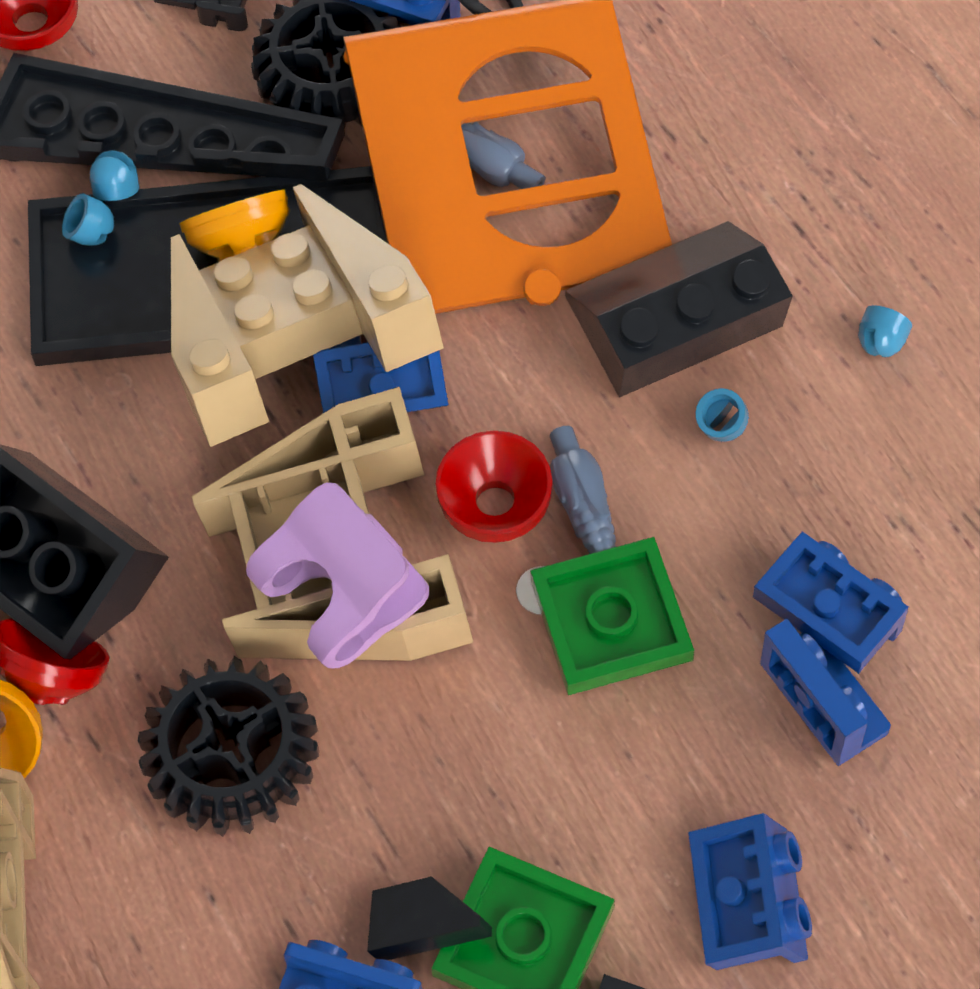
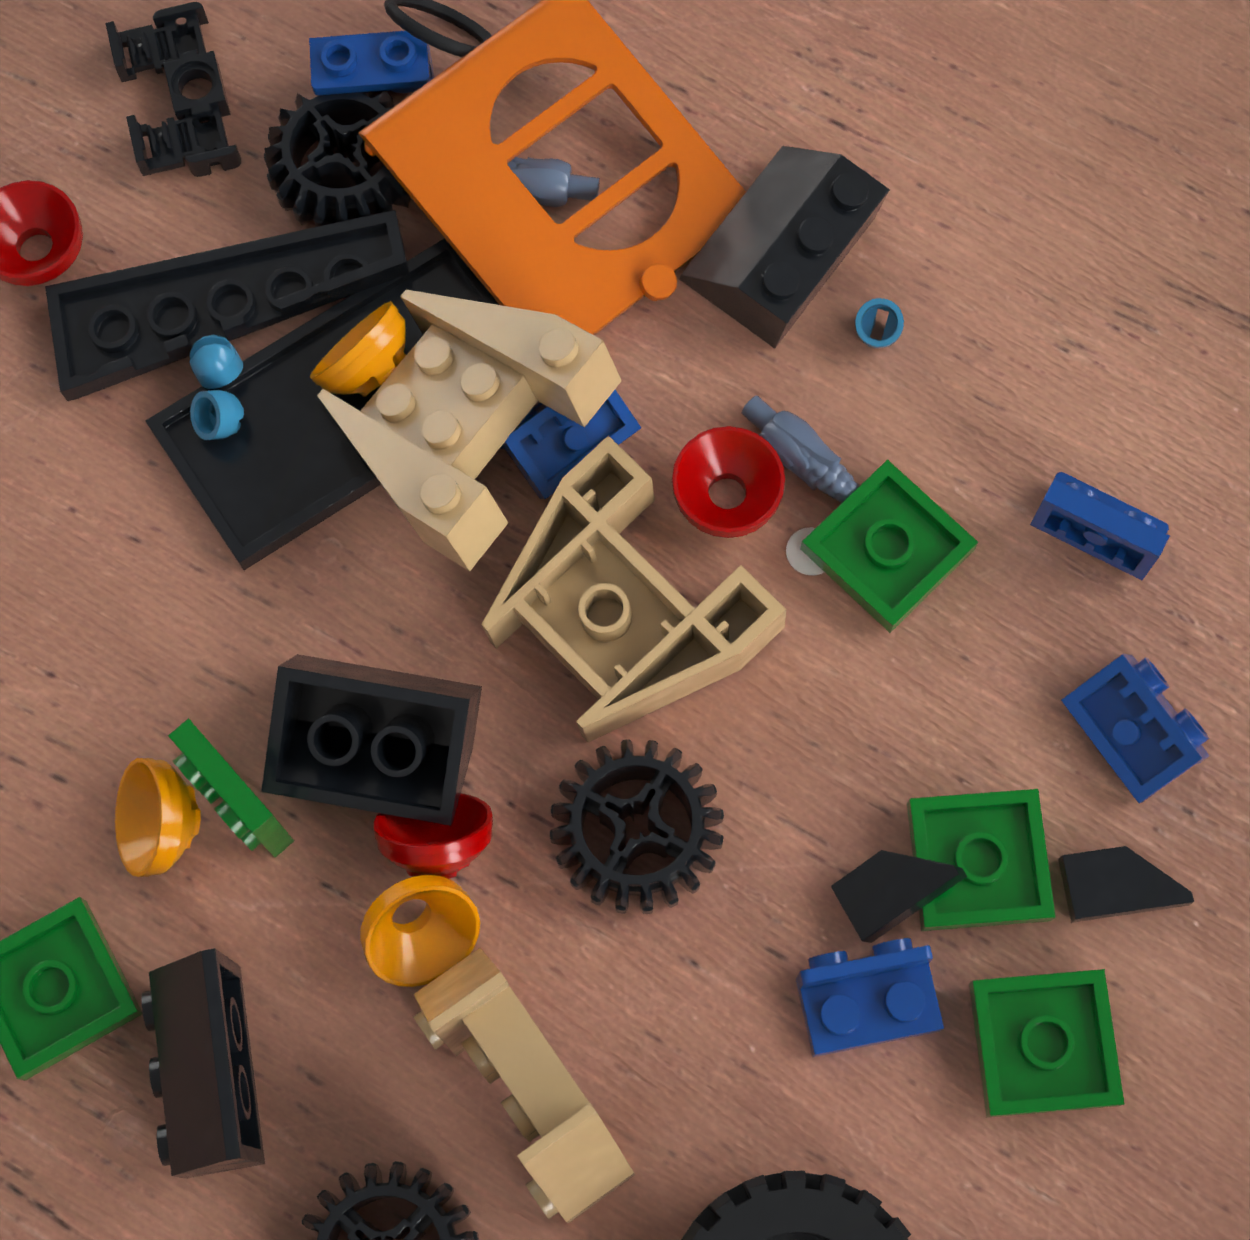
camera: 30 degrees left, 10 degrees up
(367, 568) = (671, 605): lavender piece -> none
(832, 601) = (1068, 443): blue bracket -> none
(883, 331) = (966, 182): dark azure hinge -> none

